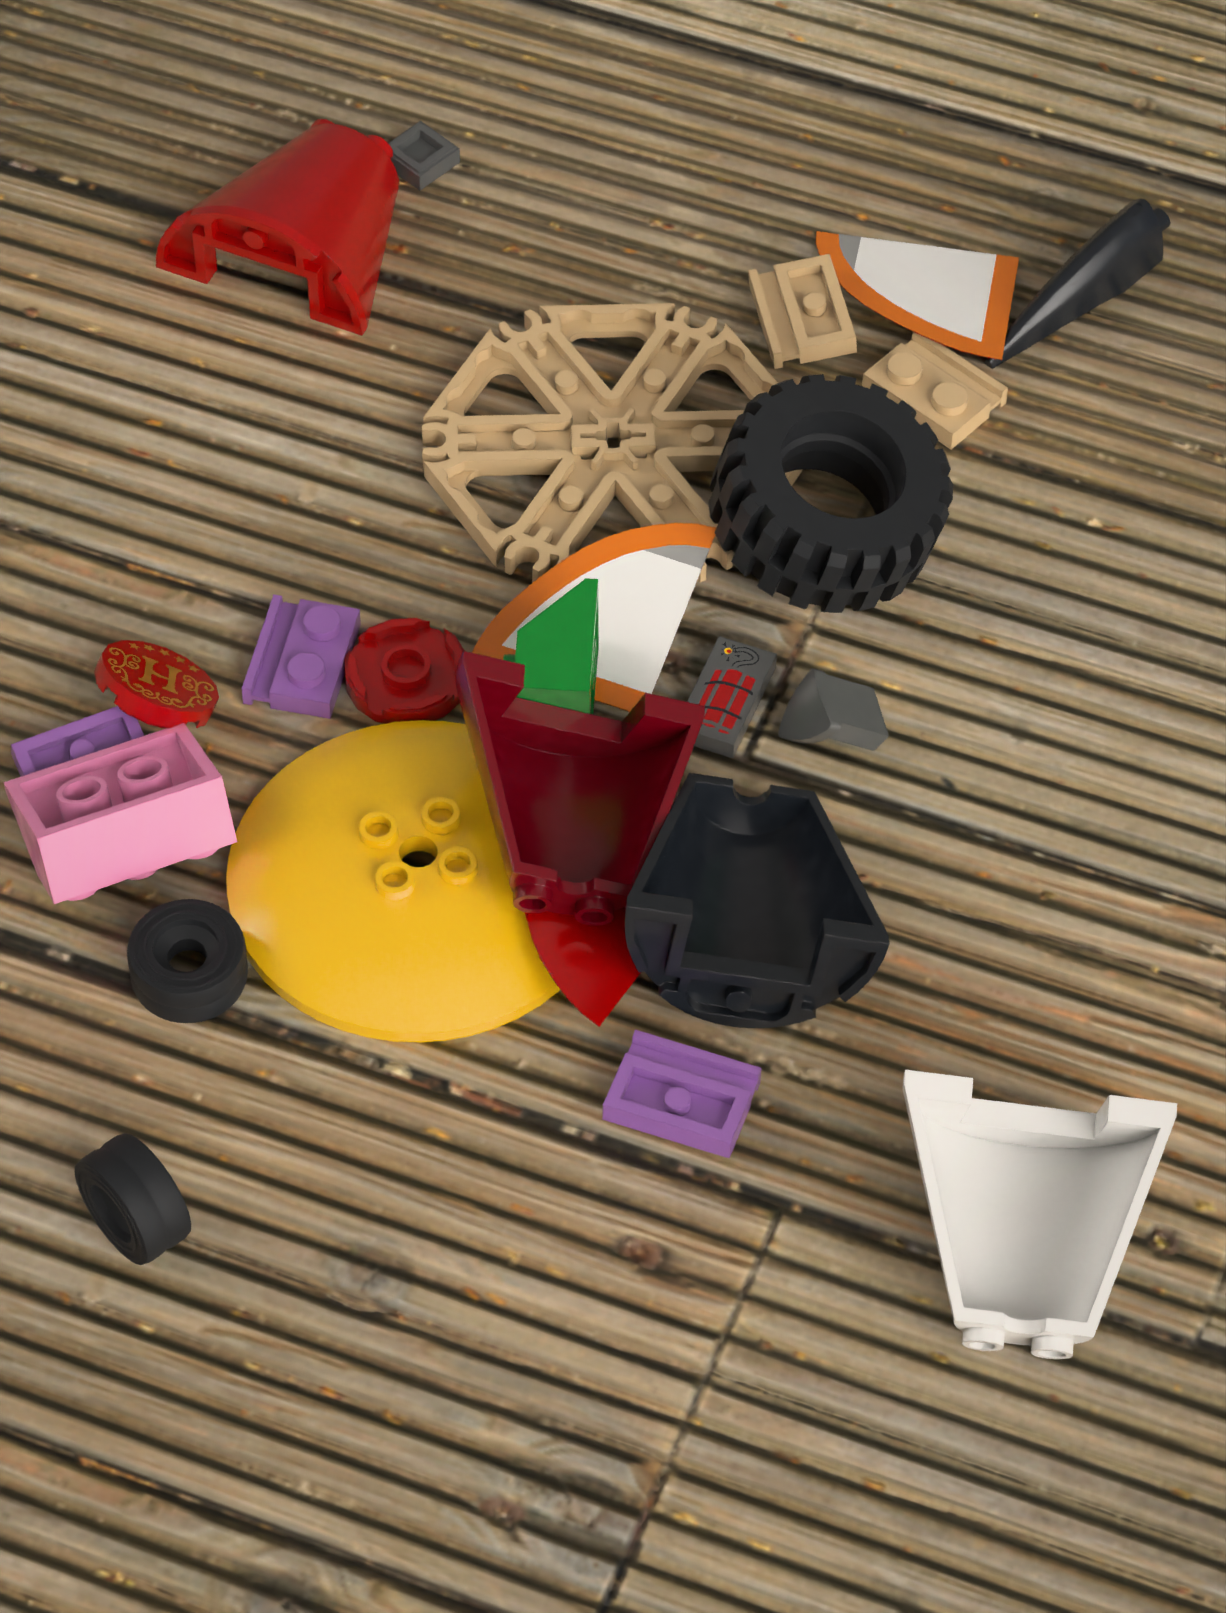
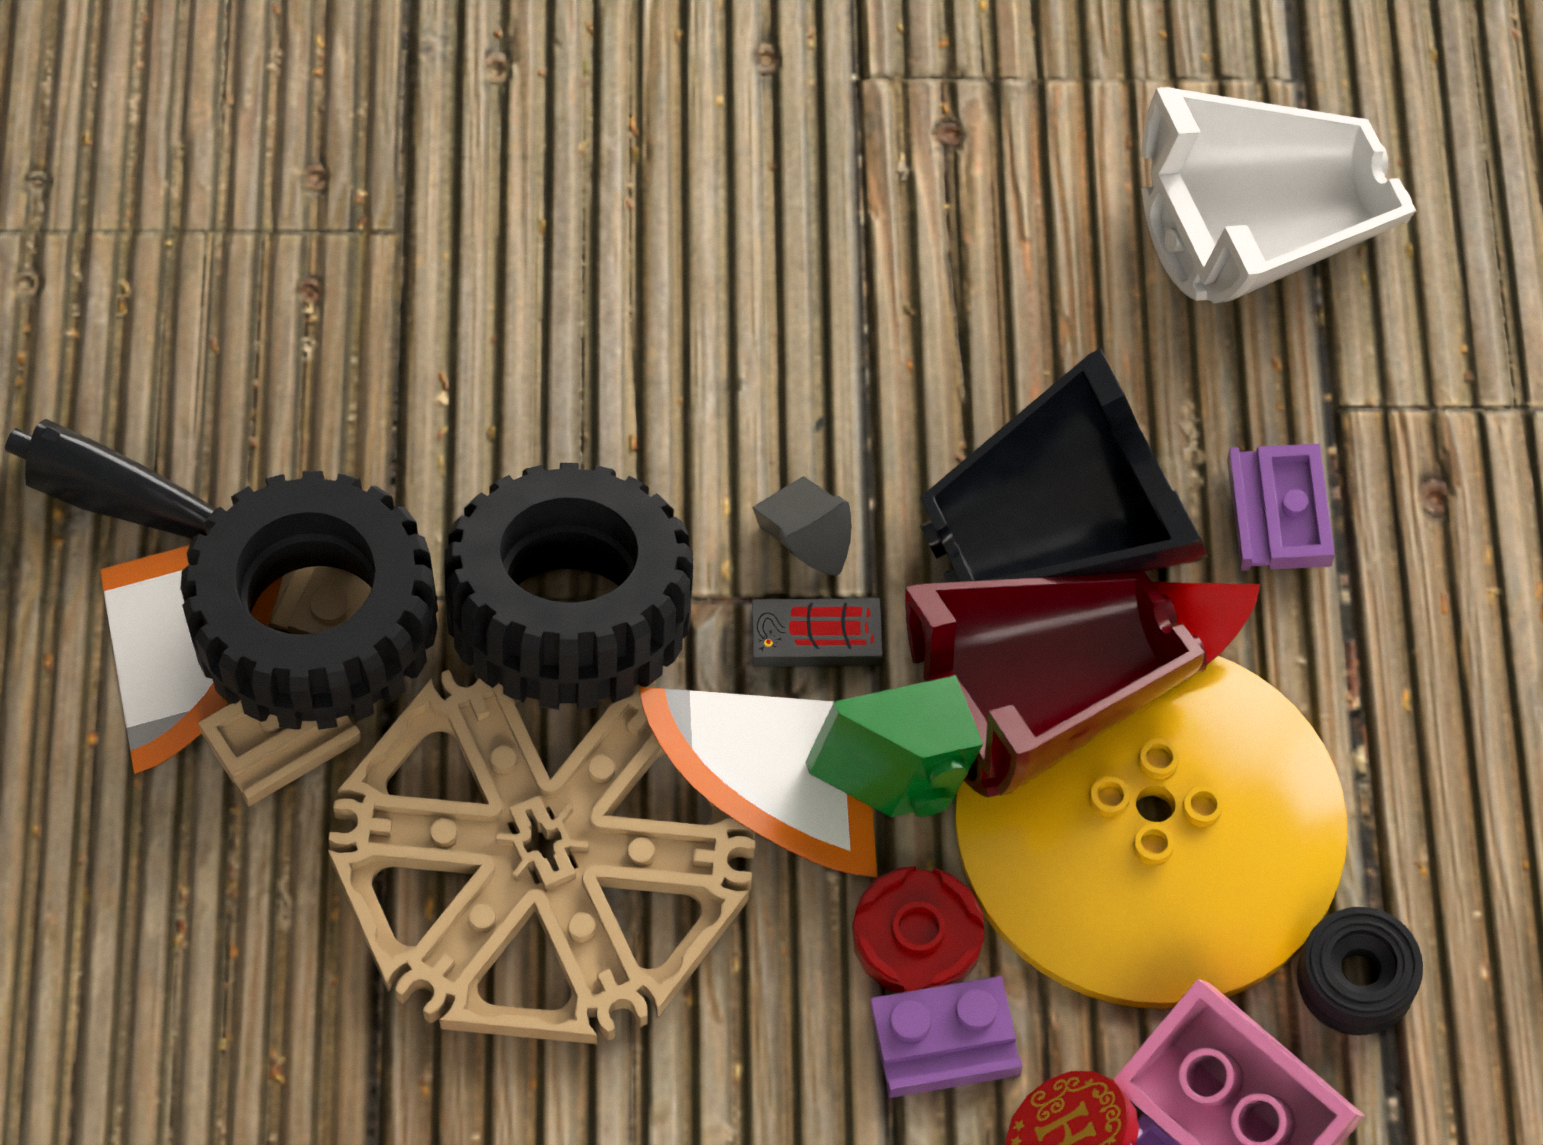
camera: 115 degrees left, 10 degrees up
(899, 260) = (296, 528): none -> black tyre

